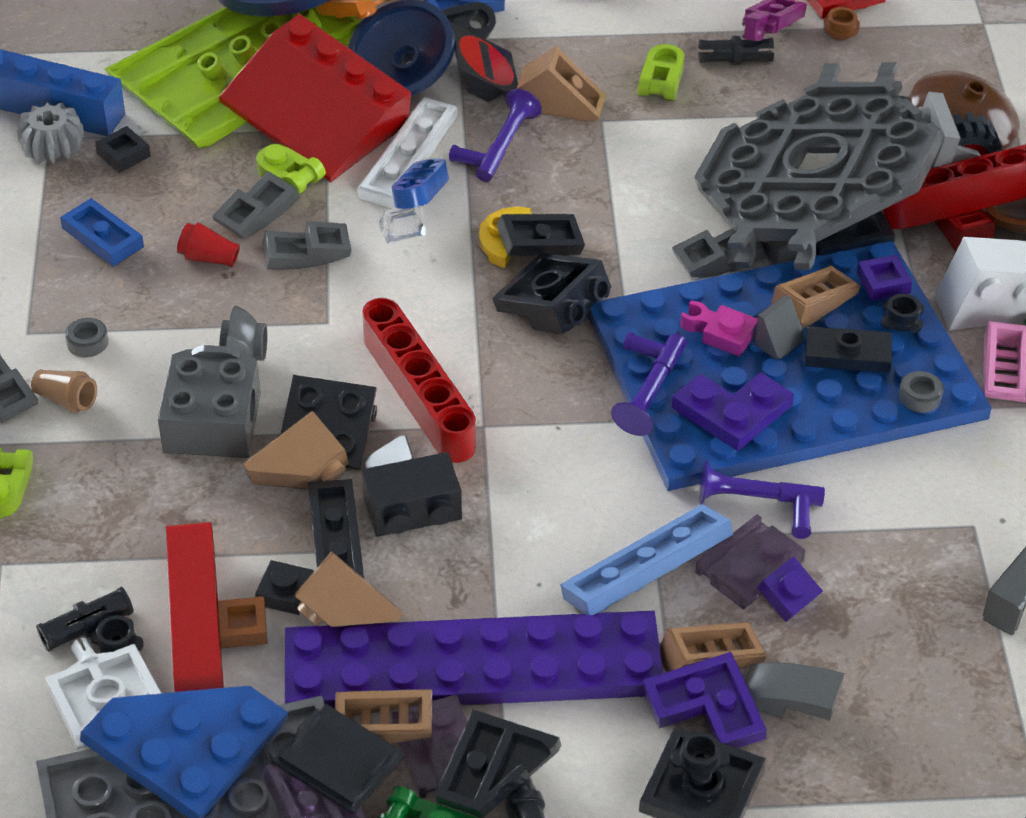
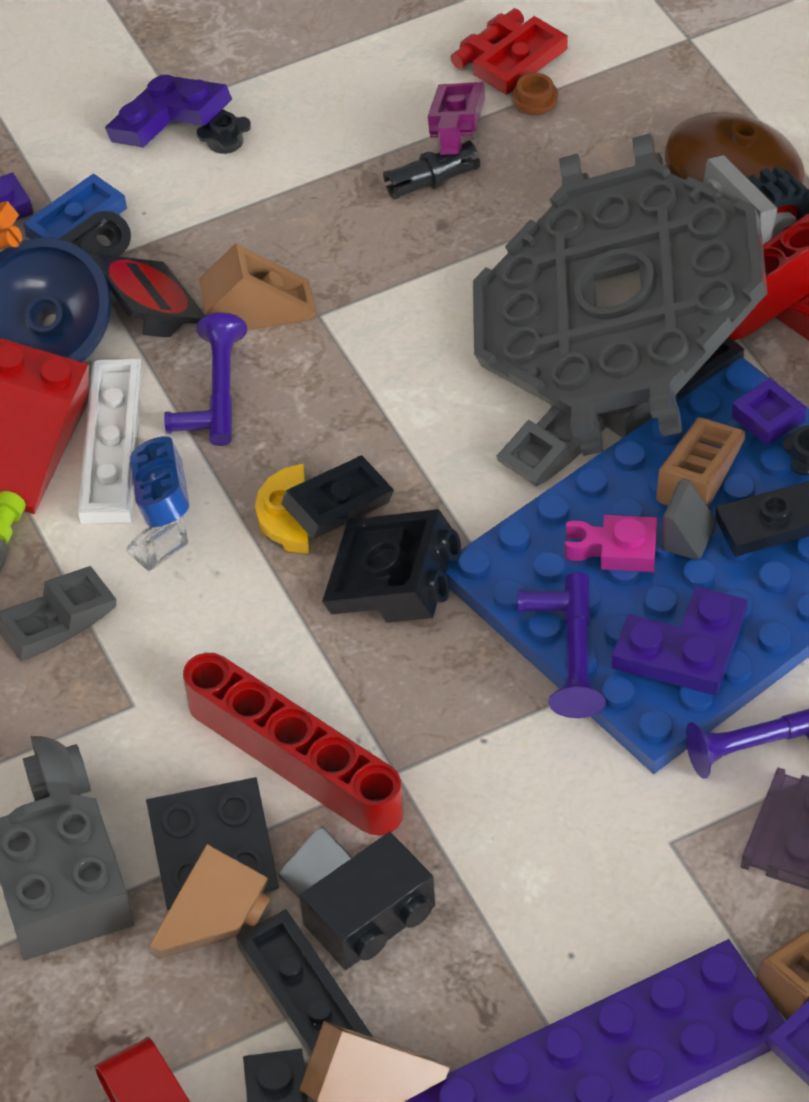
camera: 20 degrees left, 5 degrees up
(646, 560) = (685, 878): medium blue plate -> none
(665, 63) = (362, 214): lime plate -> none

